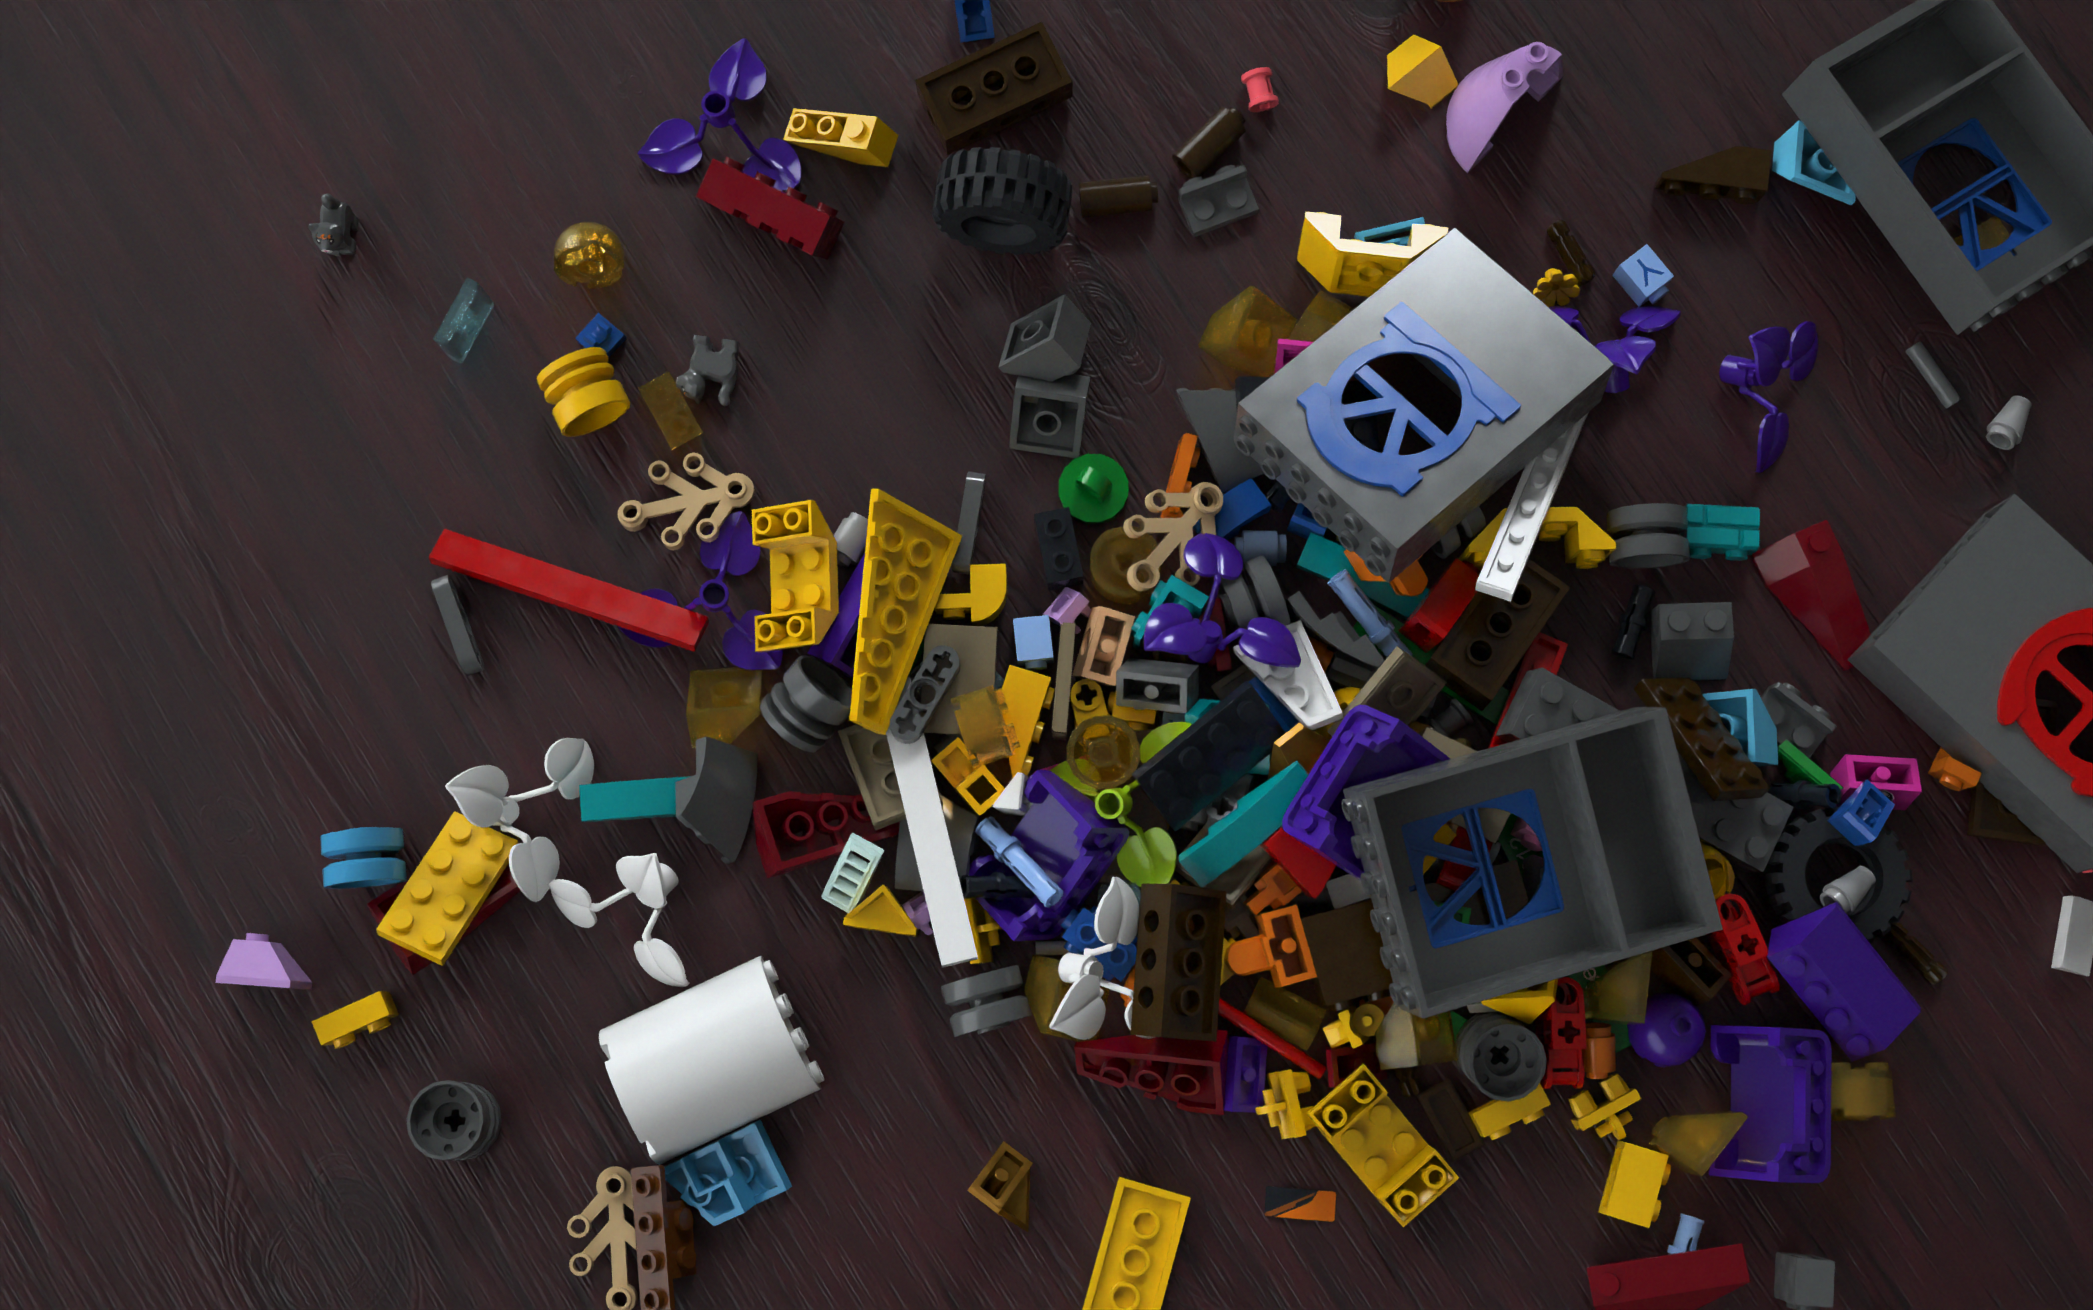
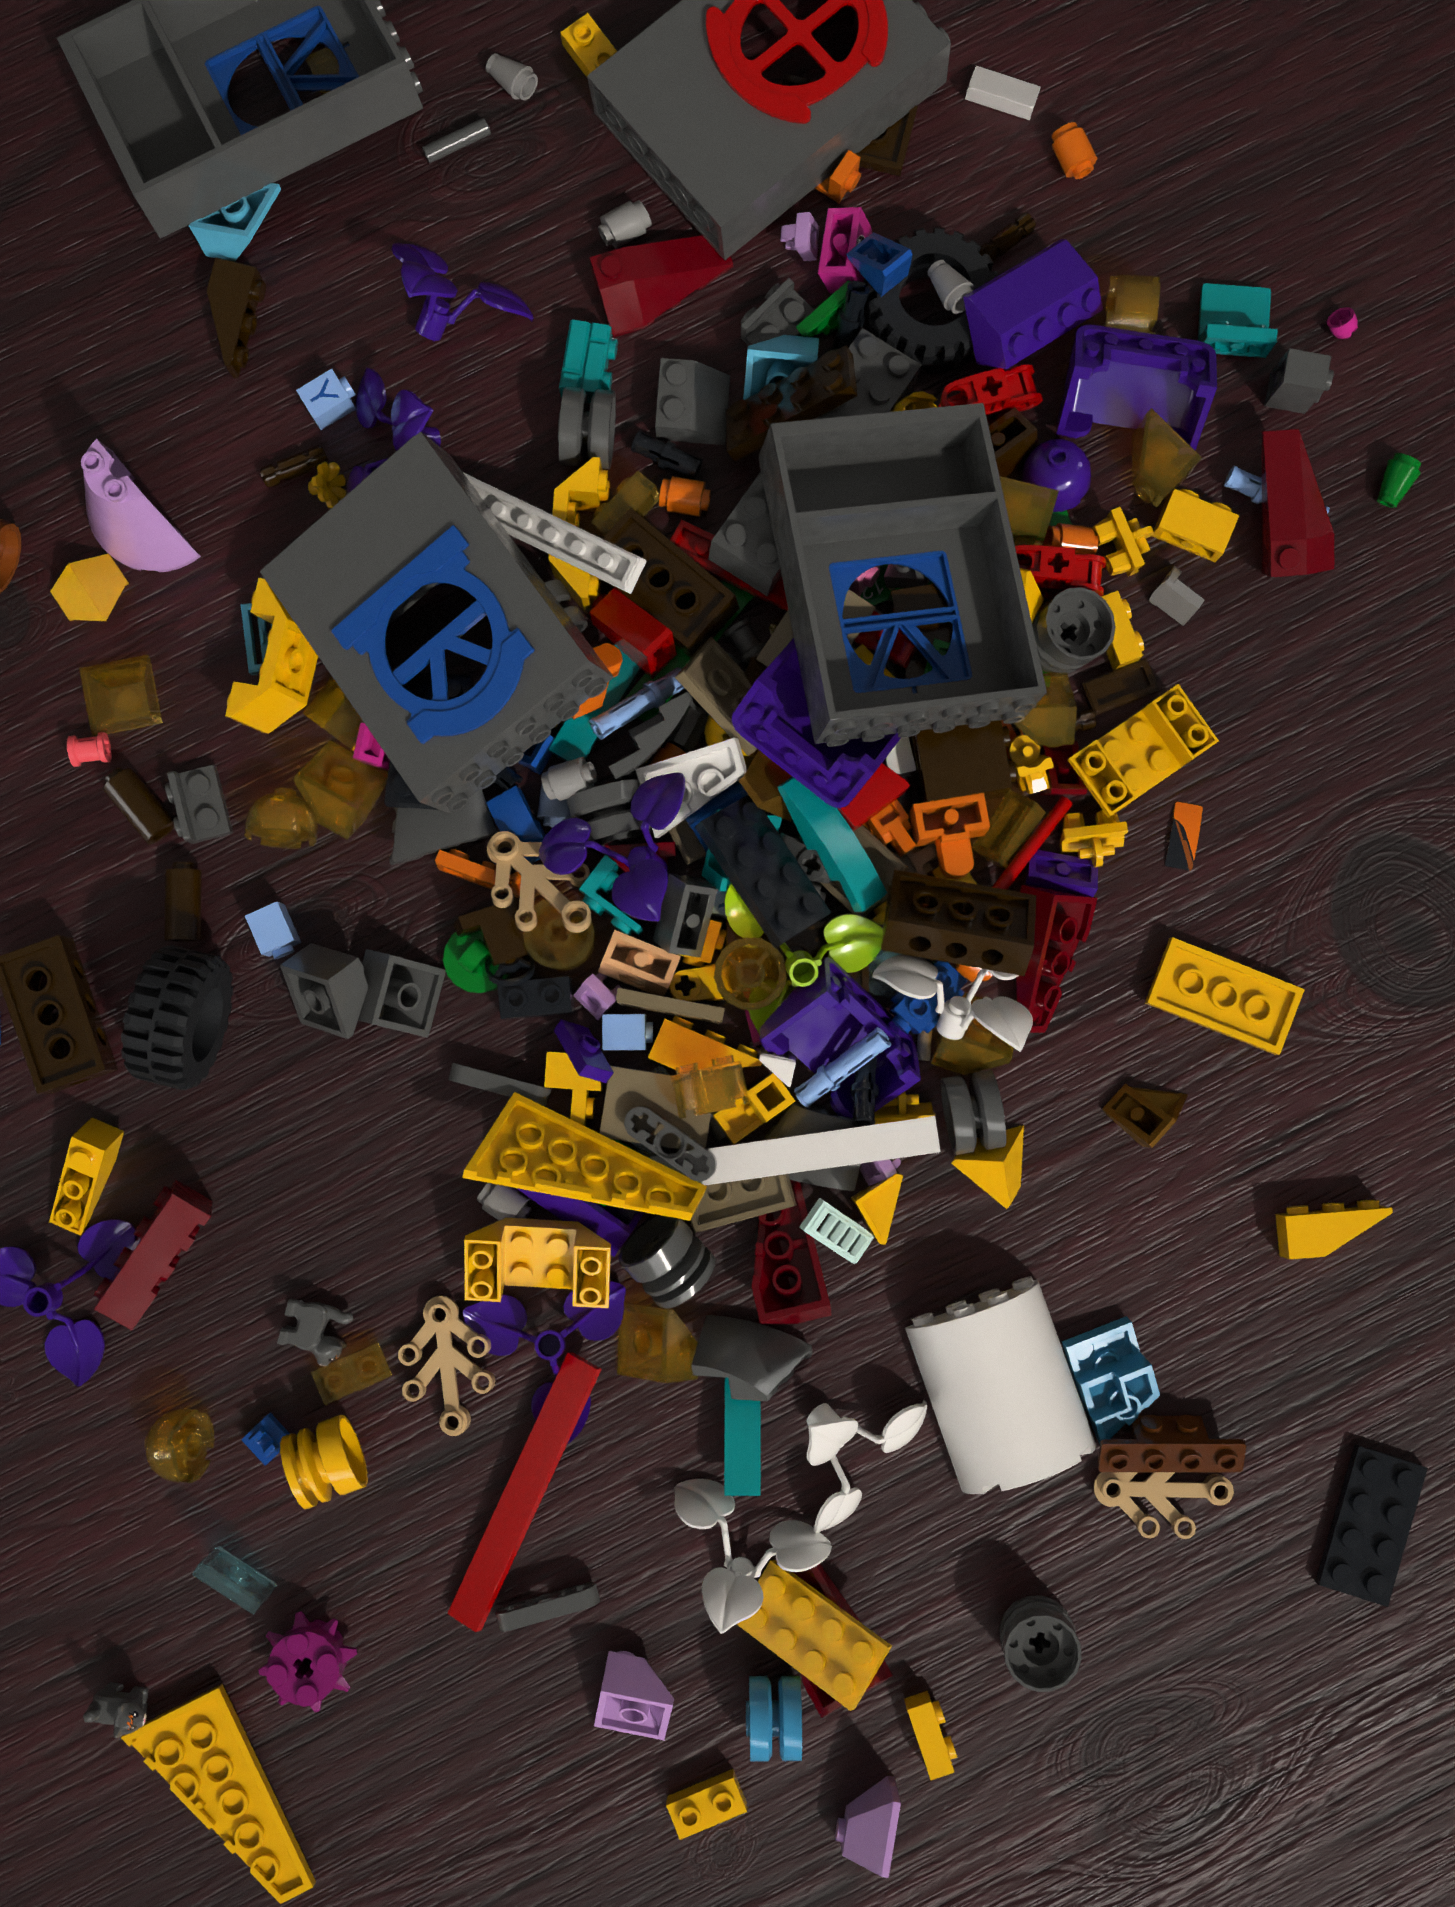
camera: 90 degrees left, 5 degrees up
(273, 330) = (221, 1781): none -> yellow wing
(275, 801) = (706, 1804): none -> yellow piece
(374, 716) = (633, 1698): none -> lavender slope
(385, 418) = (292, 1677): none -> magenta brick
(930, 1036) = (997, 1169): none -> yellow slope
(1009, 599) = (583, 1051): none -> dark purple plate
(1099, 285) = (273, 930): none -> light blue brick
(1111, 506) = (502, 942): none -> dark brown piece
(1209, 280) = (282, 820): none -> clear yellow cylinder
(1282, 554) = (568, 778): none -> light grey brick
(1317, 113) = (120, 695): none -> clear yellow slope
(1552, 1170) = (1176, 597): none -> light grey tile
(1585, 591) = (632, 493): none -> clear yellow piece
(1592, 644) = (684, 496): none -> orange brick
(1864, 1209) = (1236, 320): none -> teal bracket
(1870, 553) = (624, 224): none -> light grey brick
(1885, 738) = (802, 236): none -> lavender tile
(2022, 1016) = (1073, 151): none -> orange brick
(2056, 495) = (587, 44): none -> yellow piece

